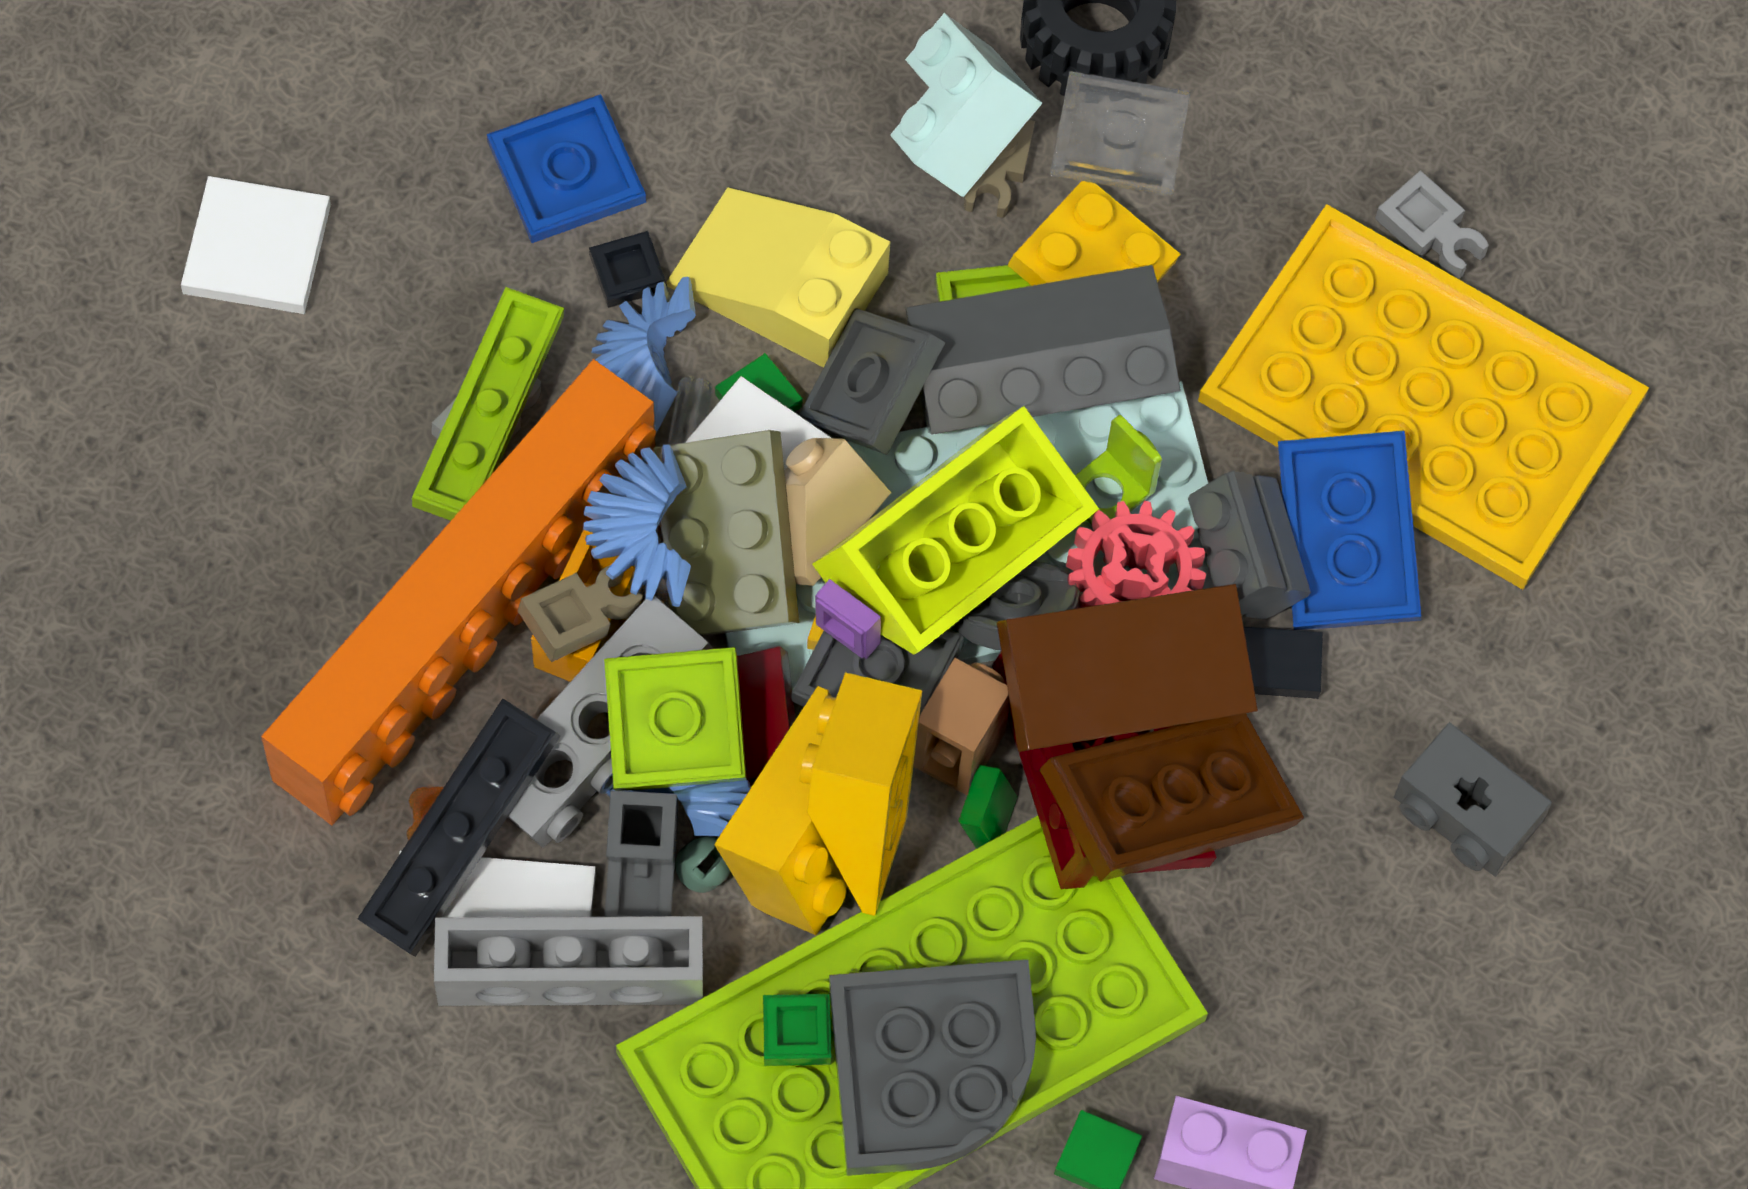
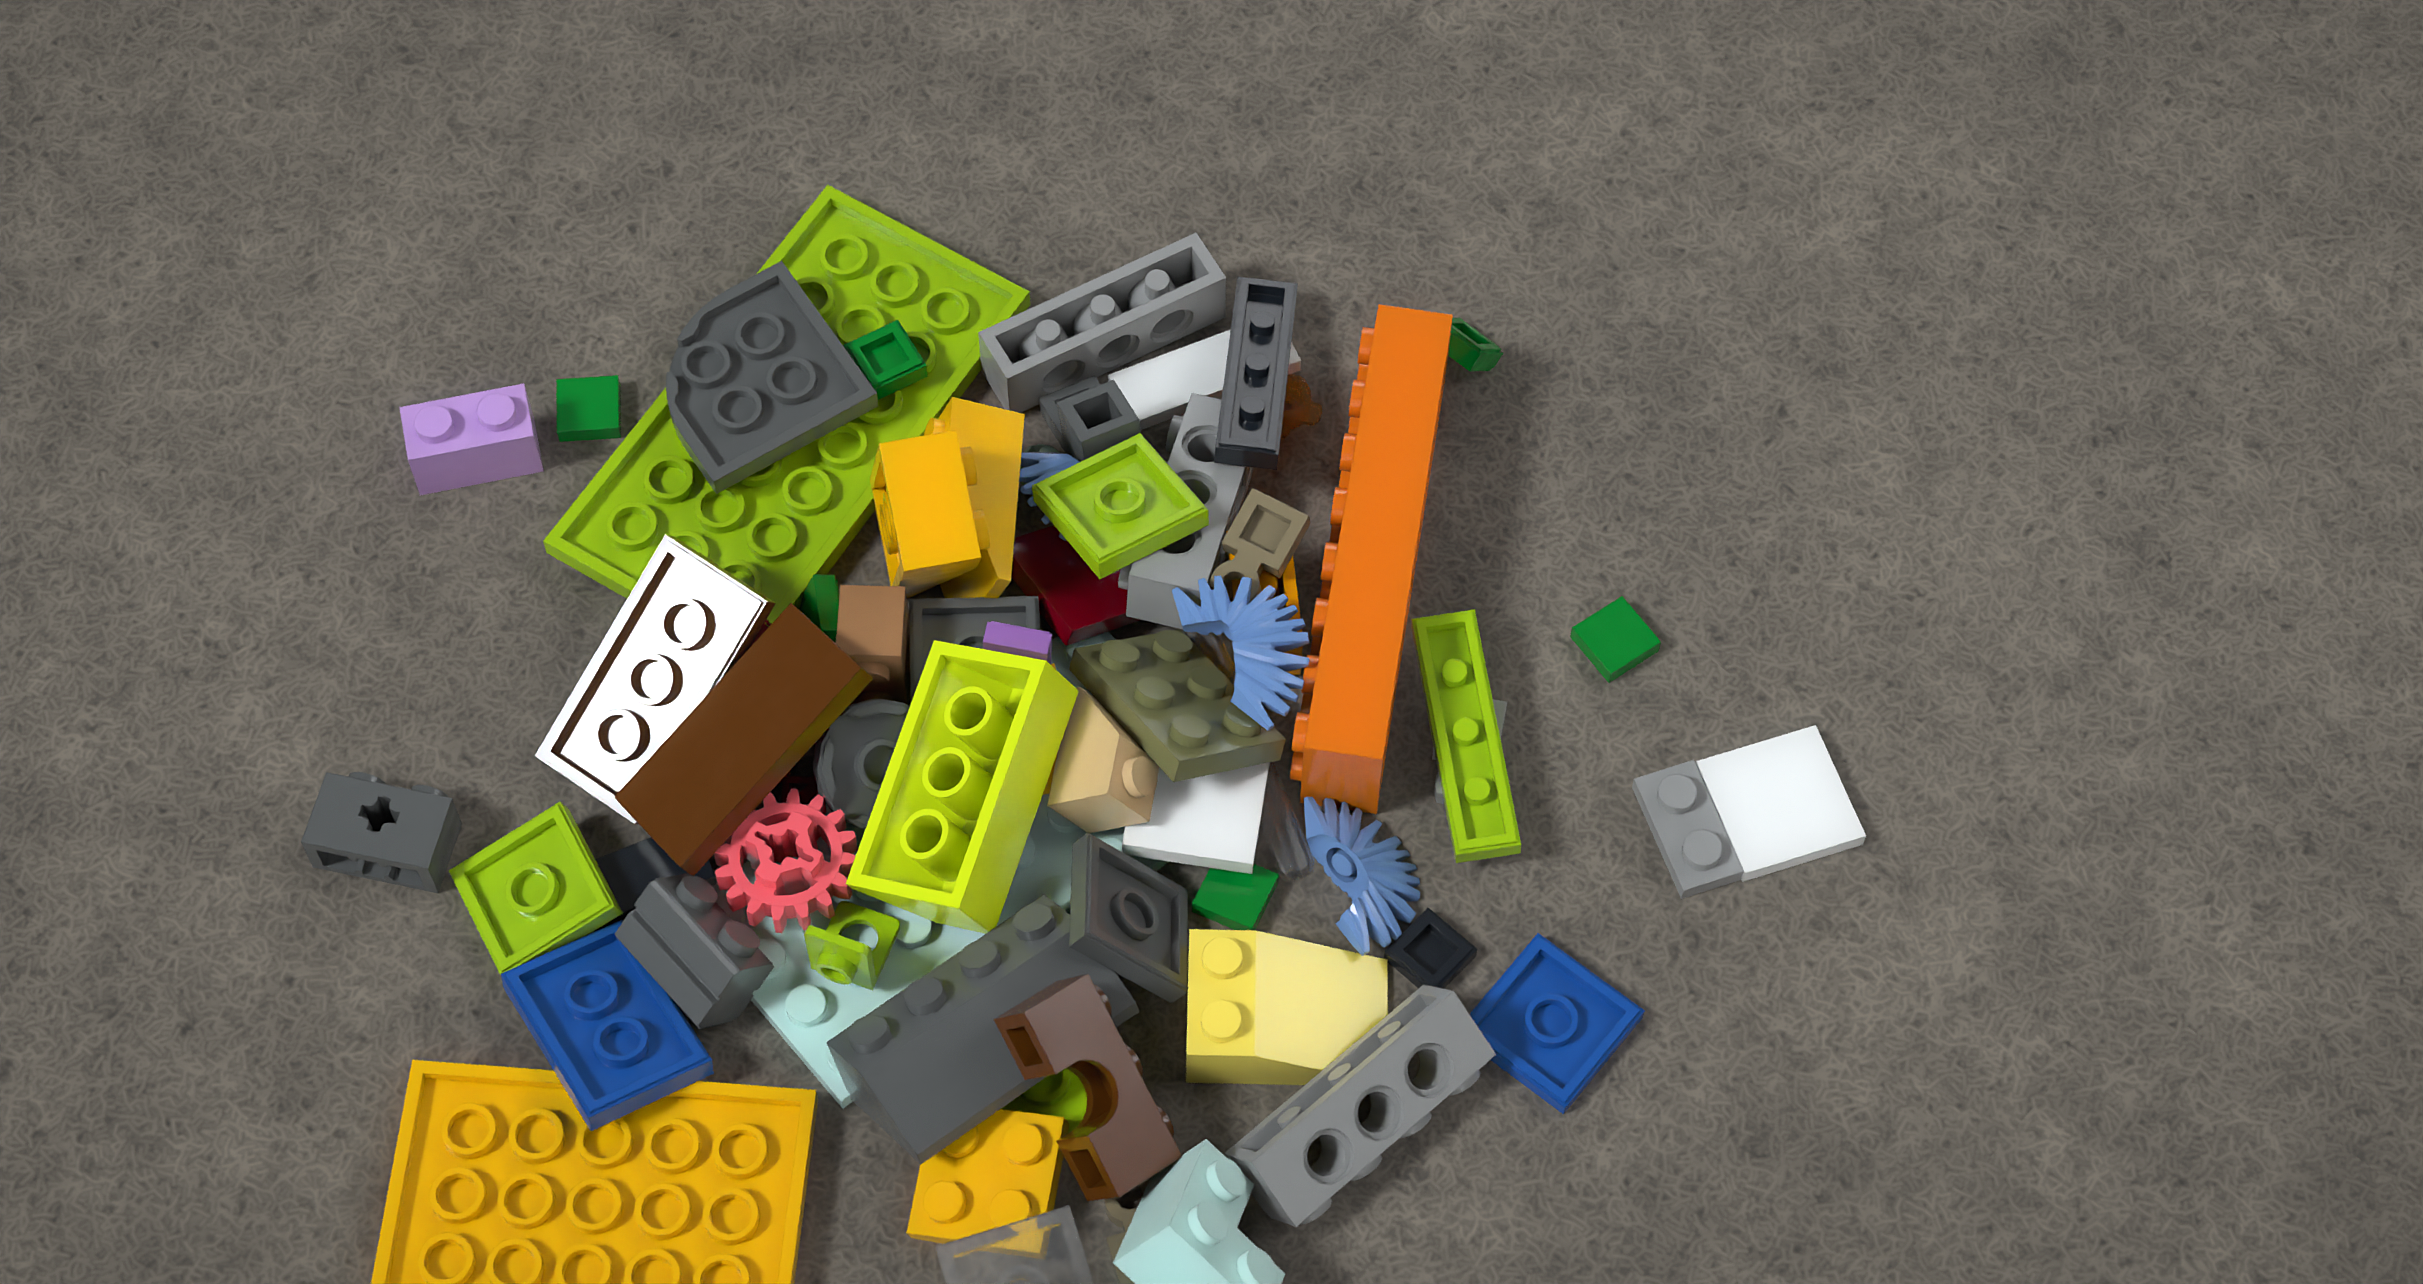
camera: 155 degrees right, 5 degrees down
(241, 783) = (1472, 348): none -> green tile
(293, 450) = (1615, 639): none -> green tile
(347, 262) = (1687, 829): none -> light grey plate
(767, 157) = (1327, 1106): none -> light grey brick
(983, 245) = (1123, 1130): none -> reddish brown arch
(1358, 683) = (535, 889): none -> lime tile

